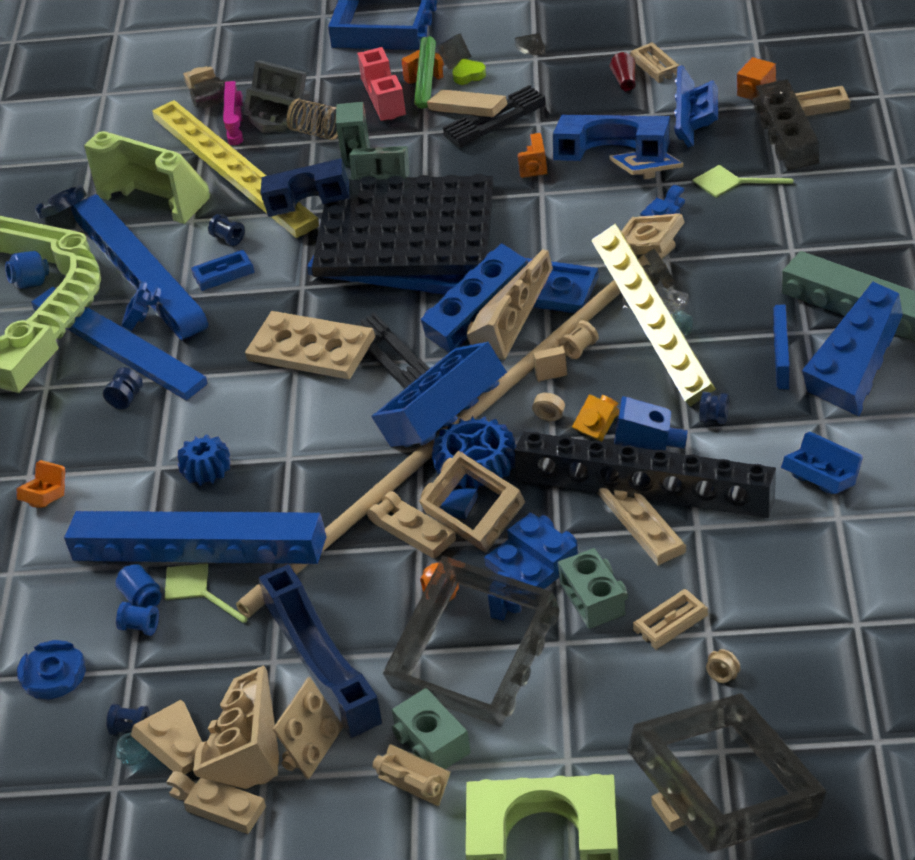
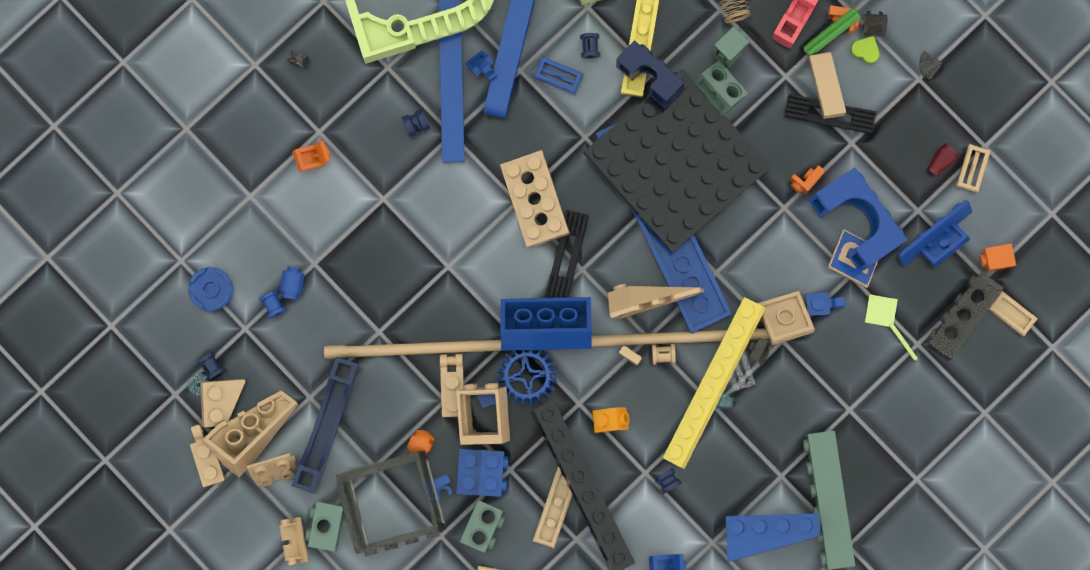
camera: 45 degrees right, 40 degrees up
(191, 582) = (321, 301): yellowish green piece -> none
(196, 537) = (342, 286): blue brick -> none
(203, 459) = (400, 235): blue gear -> none
(450, 317) = (677, 275): blue brick -> none
(548, 406) = (595, 385): tan tile -> none
(647, 426) = (608, 456): blue torso -> none
(781, 346) = (748, 478): blue tile -> none

